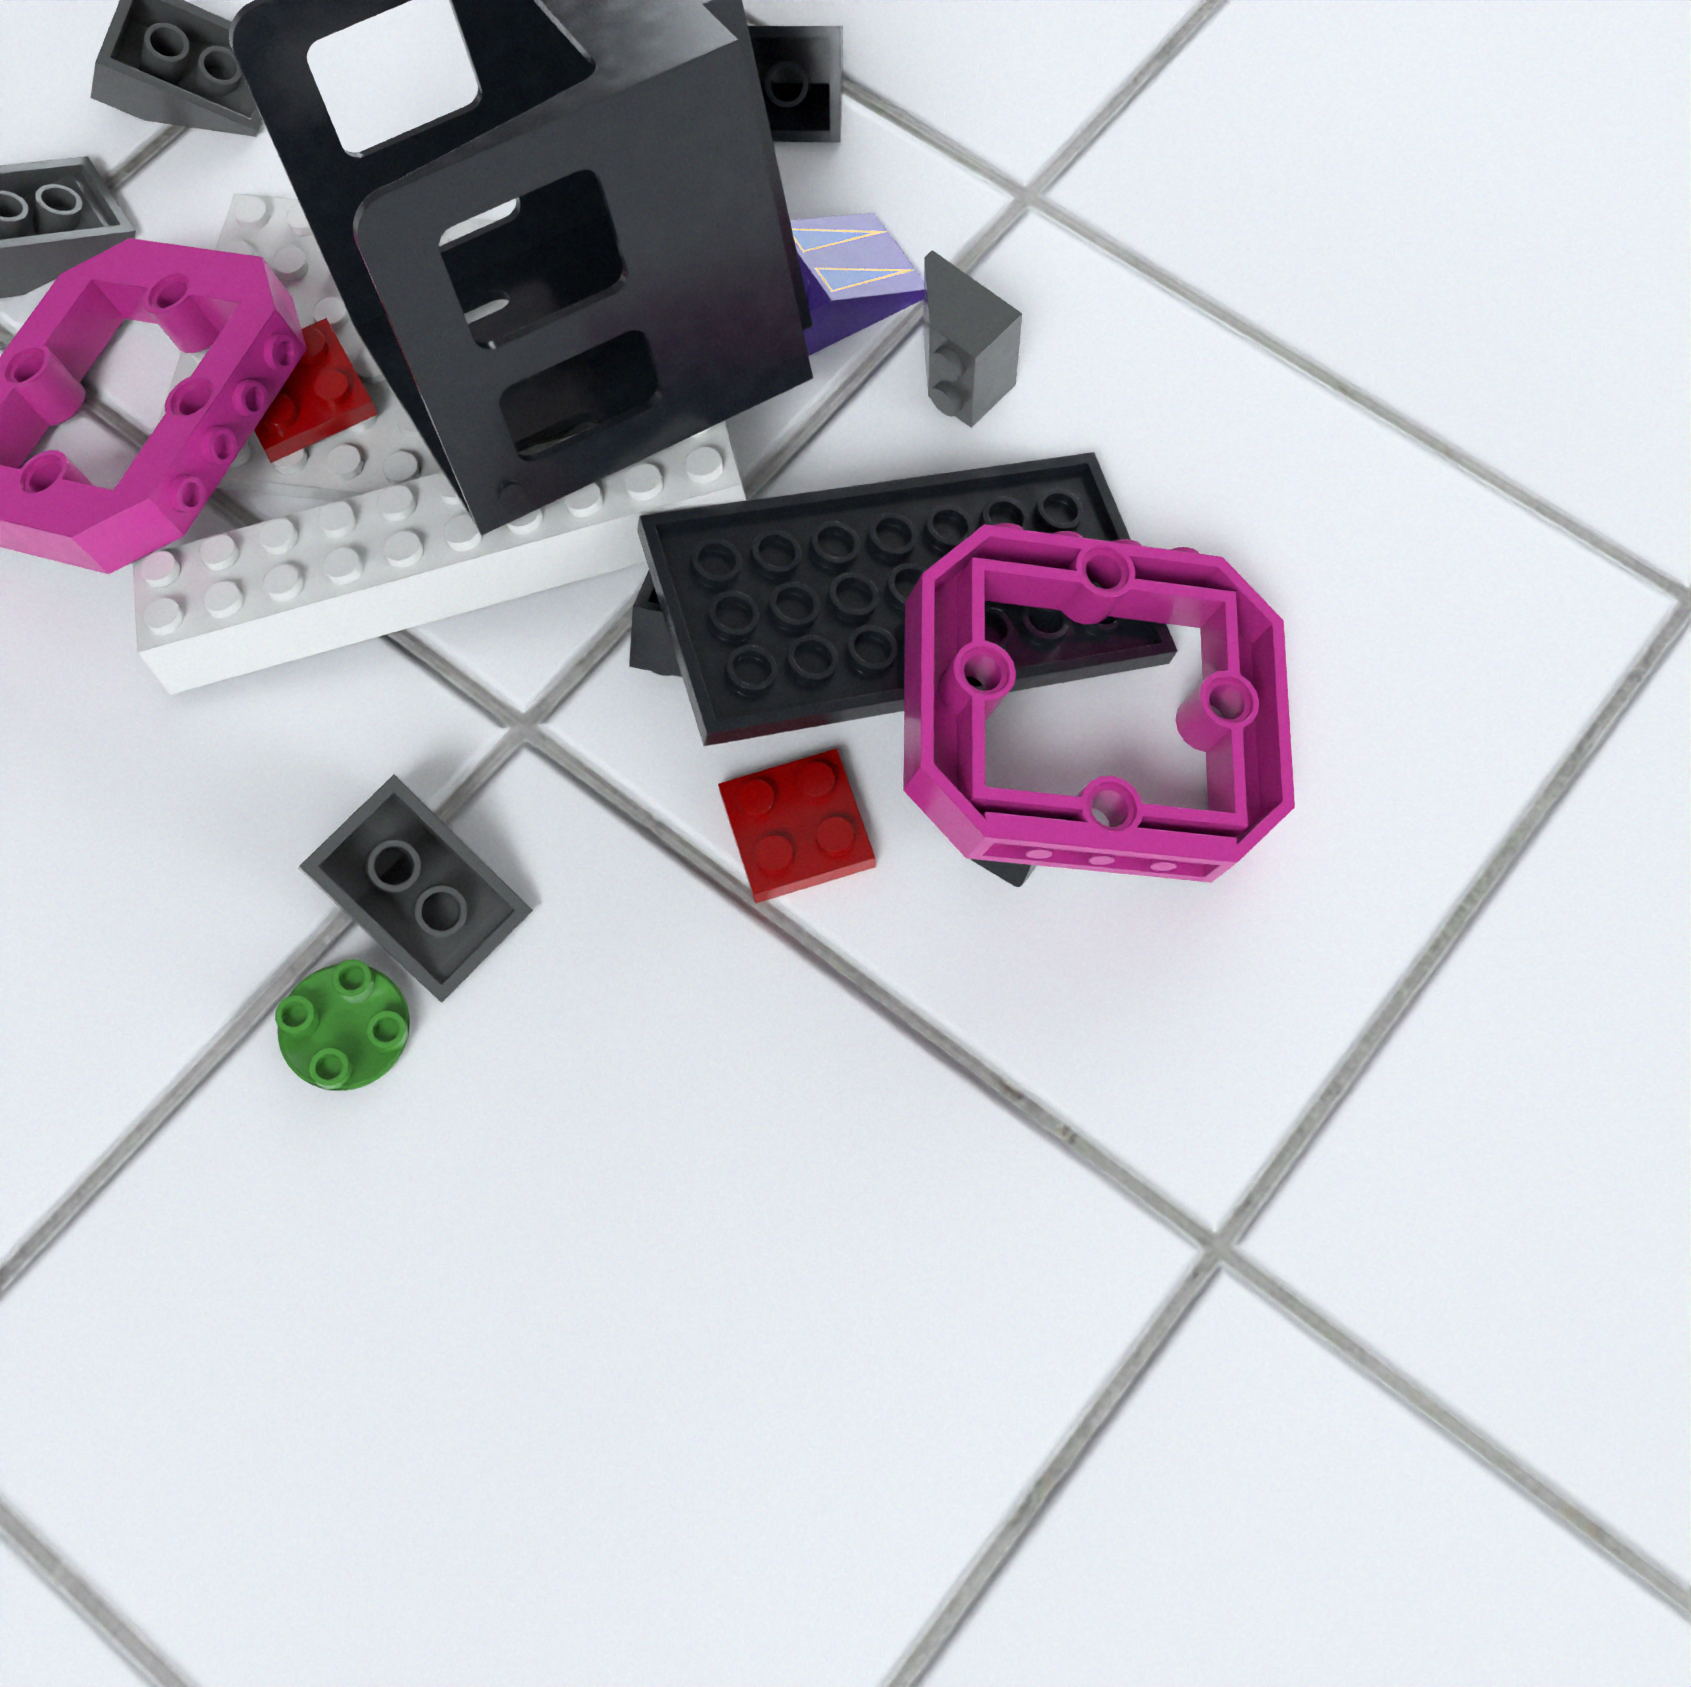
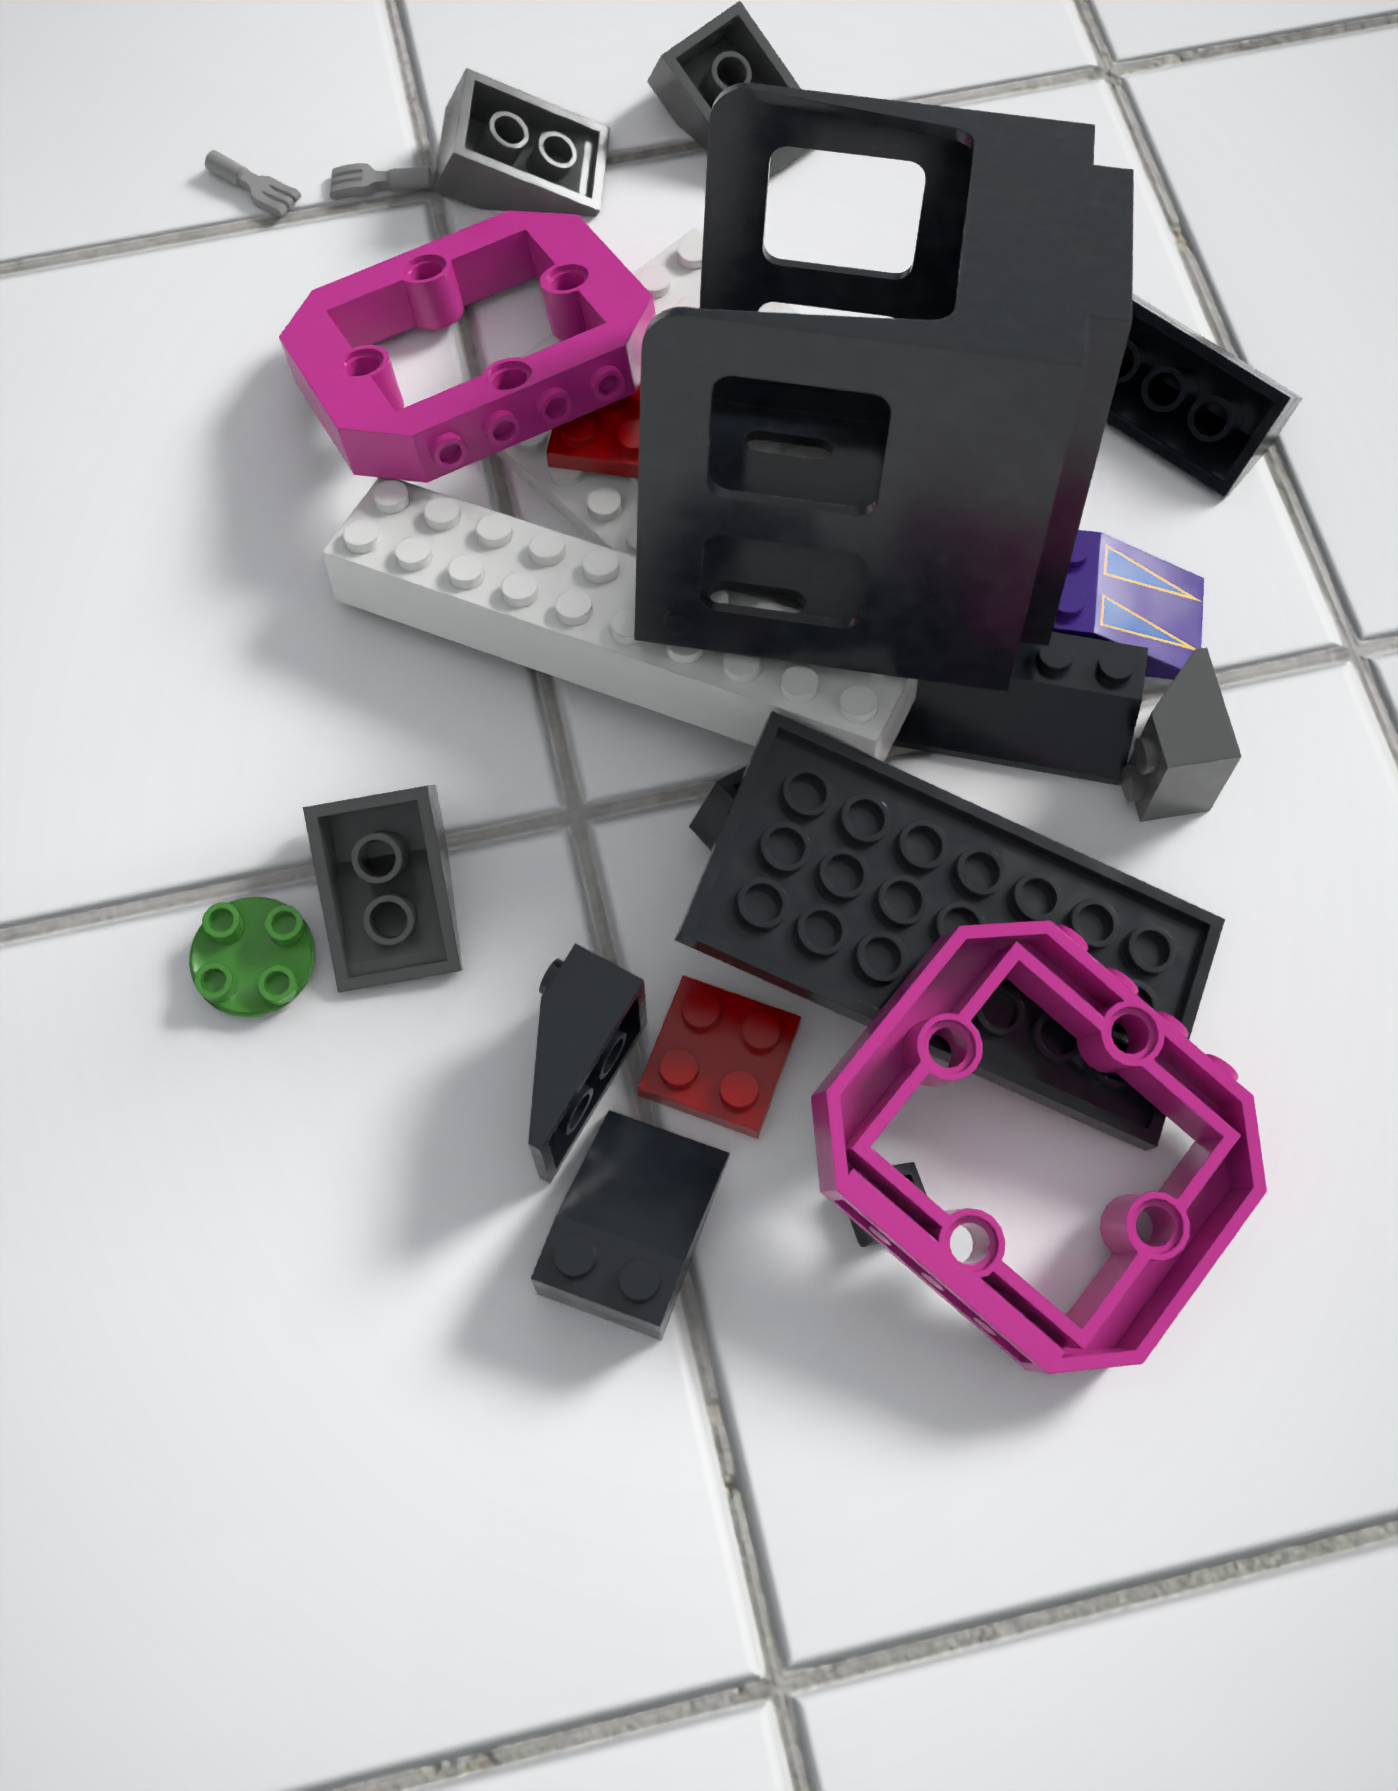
camera: 35 degrees right, 0 degrees up
(677, 868) = (585, 1033): none -> black slope
(836, 1000) = (630, 1224): none -> black slope
(860, 389) = (1063, 714): none -> black slope

